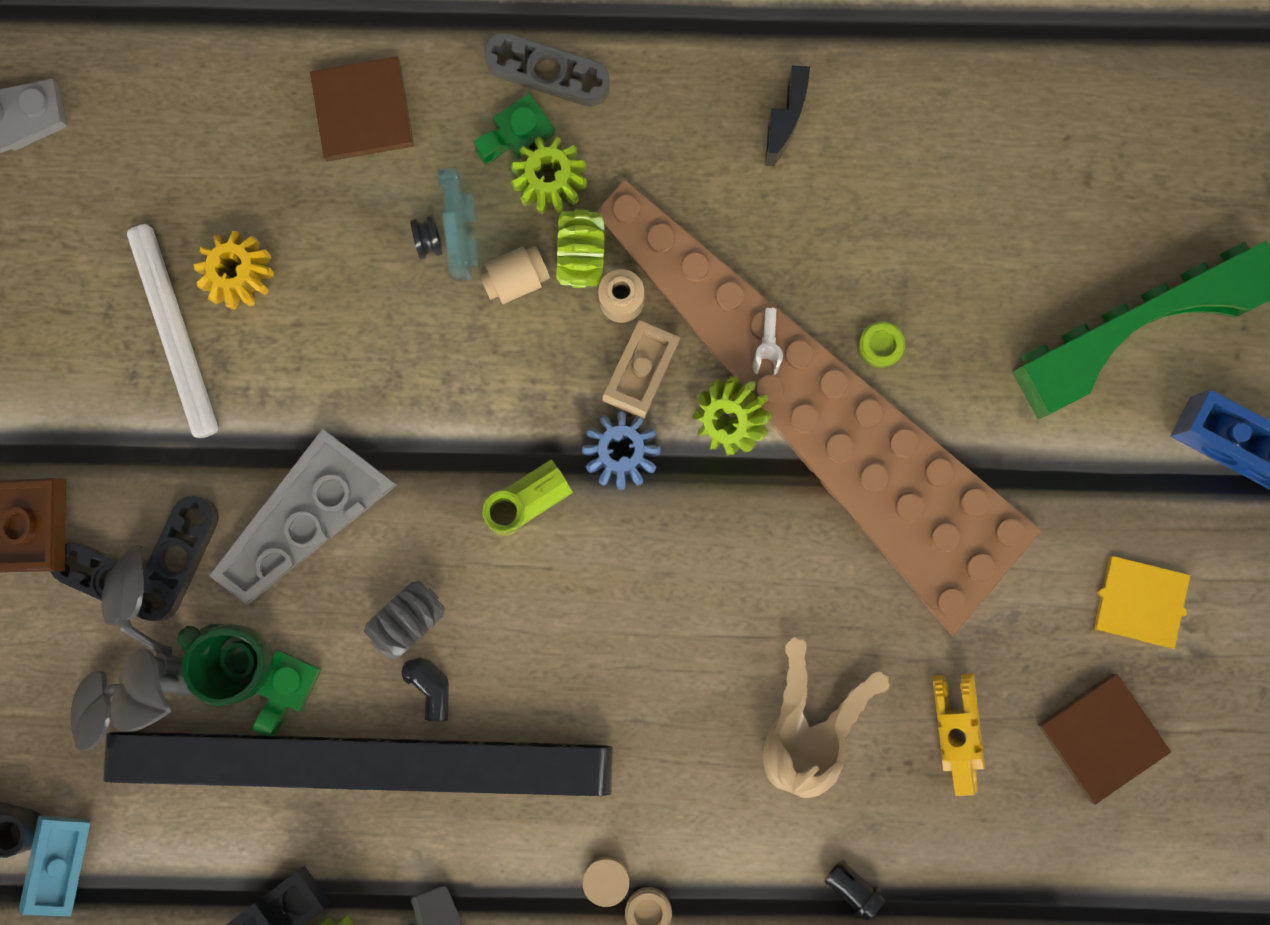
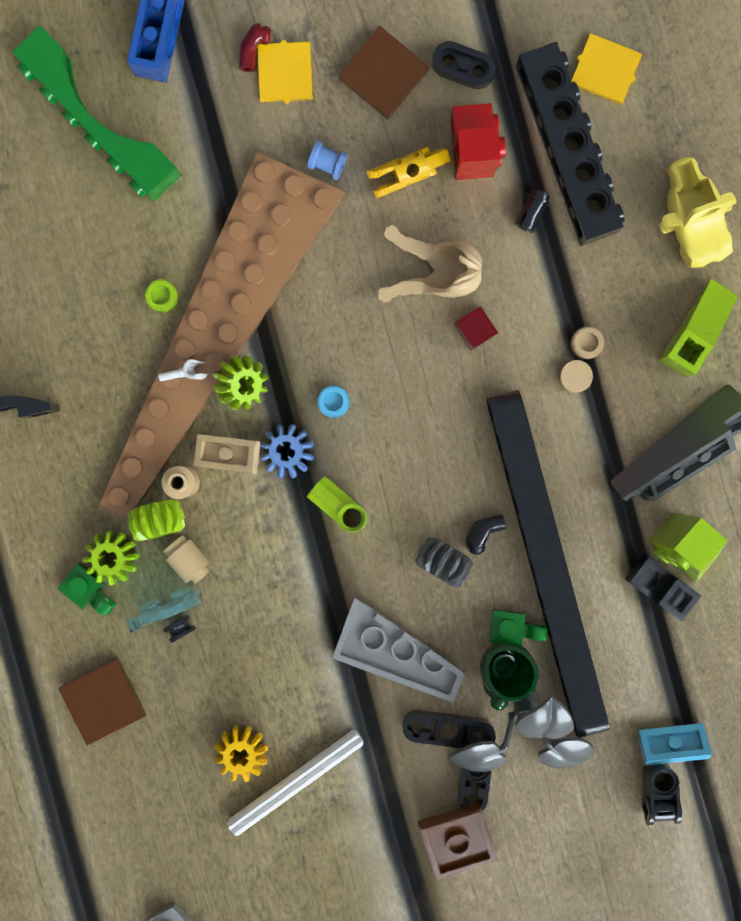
camera: 110 degrees left, 5 degrees up
(513, 69) = (43, 605): dark grey beam -> none
(670, 534) = (333, 401): none -> medium azure tile
(713, 761) = (475, 328): none -> dark red slope
(972, 839) = (476, 141): none -> red brick
(1003, 624) = (327, 160): none -> medium blue bush
(1087, 856) = (465, 62): none -> black plate
(1202, 575) = (249, 44): none -> dark red arm

